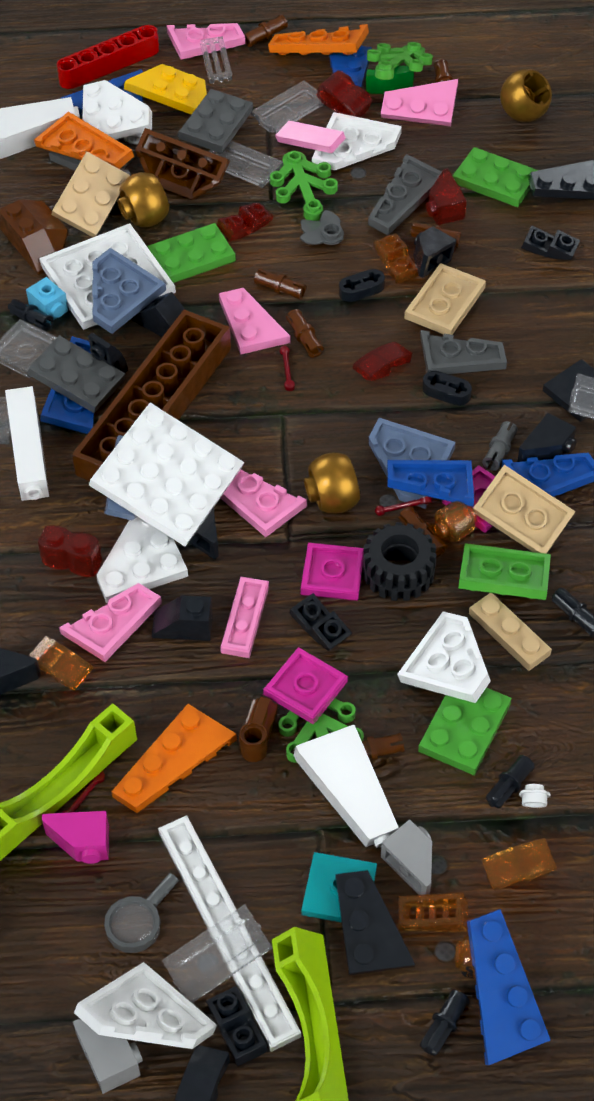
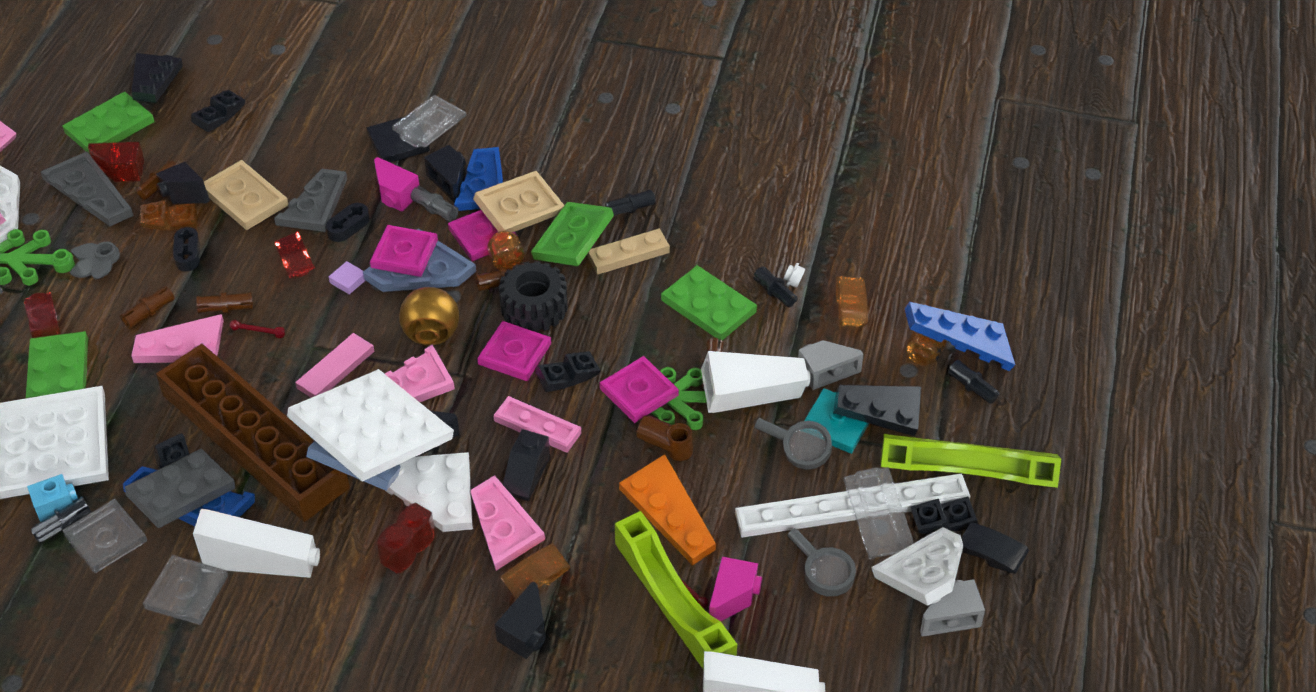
camera: 75 degrees left, 5 degrees down
(121, 290) = (86, 425): sand blue plate -> none
(160, 314) = (134, 406): black slope -> none
(261, 438) = (335, 366): none -> bright pink tile
(291, 861) = (805, 443): none -> piece
(374, 409) = (347, 277): none -> lavender tile
(380, 510) = (463, 301): dark red hinge -> none
(416, 437) = (404, 250): none -> dark pink tile
(433, 478) = (460, 246): blue wing -> none
(444, 924) = (881, 347): clear orange slope -> none
(448, 661) = (651, 289): white plate -> none
(507, 403) = (395, 184): none -> dark pink slope
(526, 95) = (31, 67): pearl gold wheel -> none

